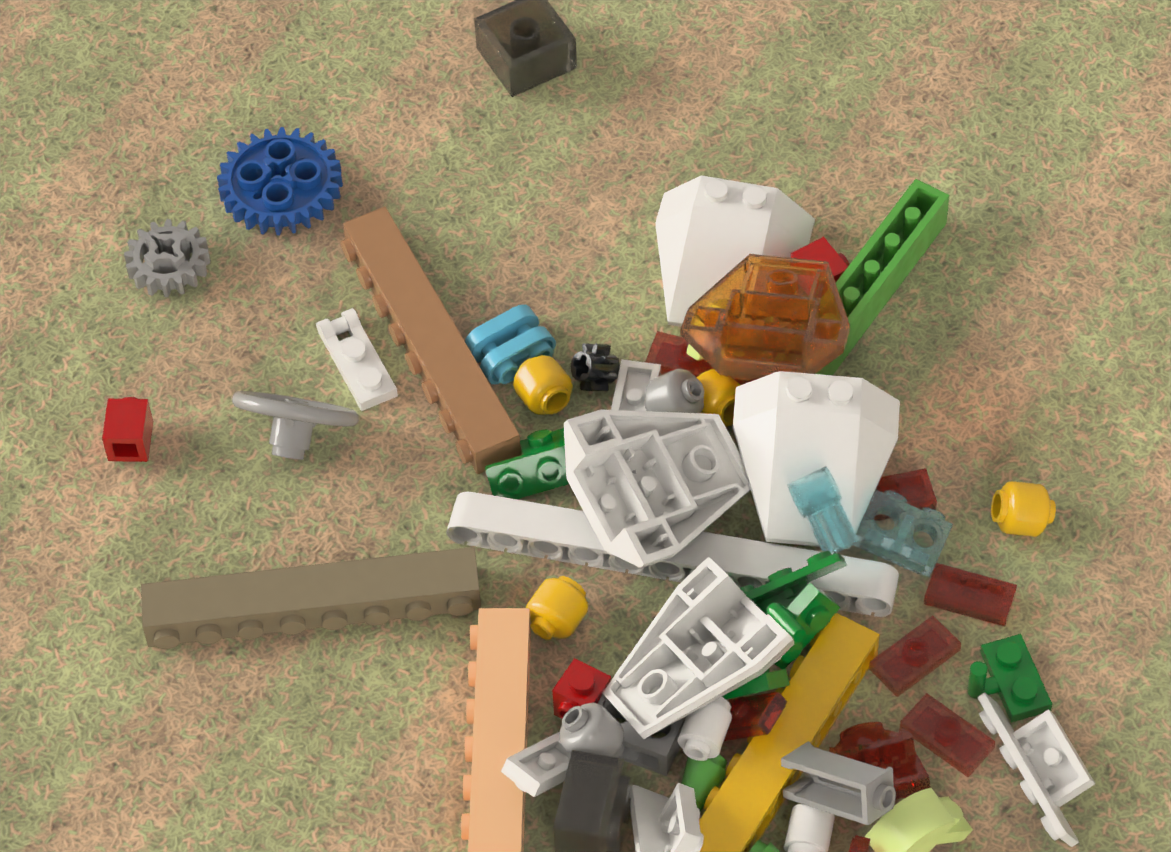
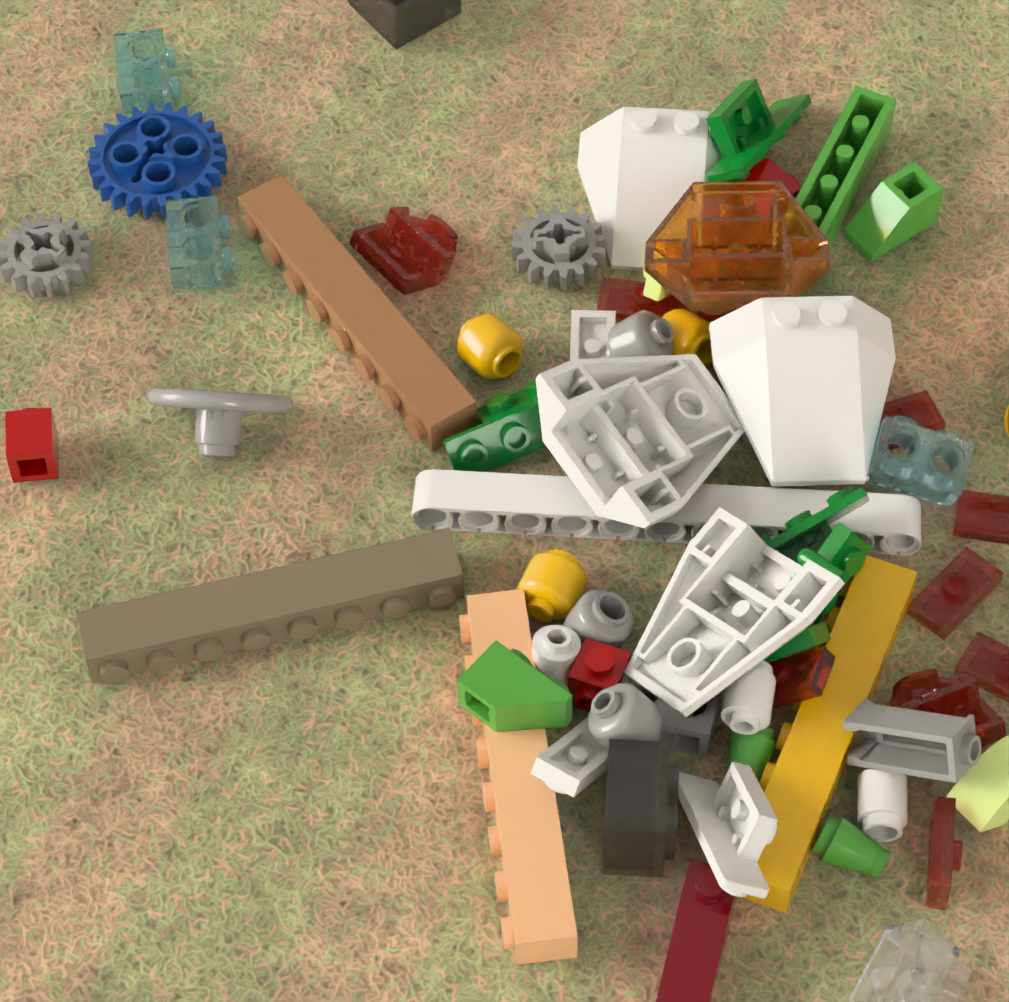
camera: 10 degrees left, 0 degrees up
(282, 96) = (144, 69): none -> clear light blue brick
(301, 262) = (196, 244): none -> clear light blue brick
(357, 360) = (276, 343): white plate -> none
(486, 284) = (408, 249): none -> clear red slope
(498, 700) = (512, 694): none -> bright green slope
(509, 341) = (444, 304): medium azure brick -> none
(544, 669) = (555, 651): none -> white brick
(591, 642) = (602, 618): none -> light grey head
(595, 367) = (544, 321): black gear -> none
(622, 300) = (559, 247): none -> light grey gear
(810, 206) = (748, 128): none -> green bracket
(819, 502) = (828, 433): clear light blue piece -> none
(931, 300) = (895, 212): none -> bright green slope

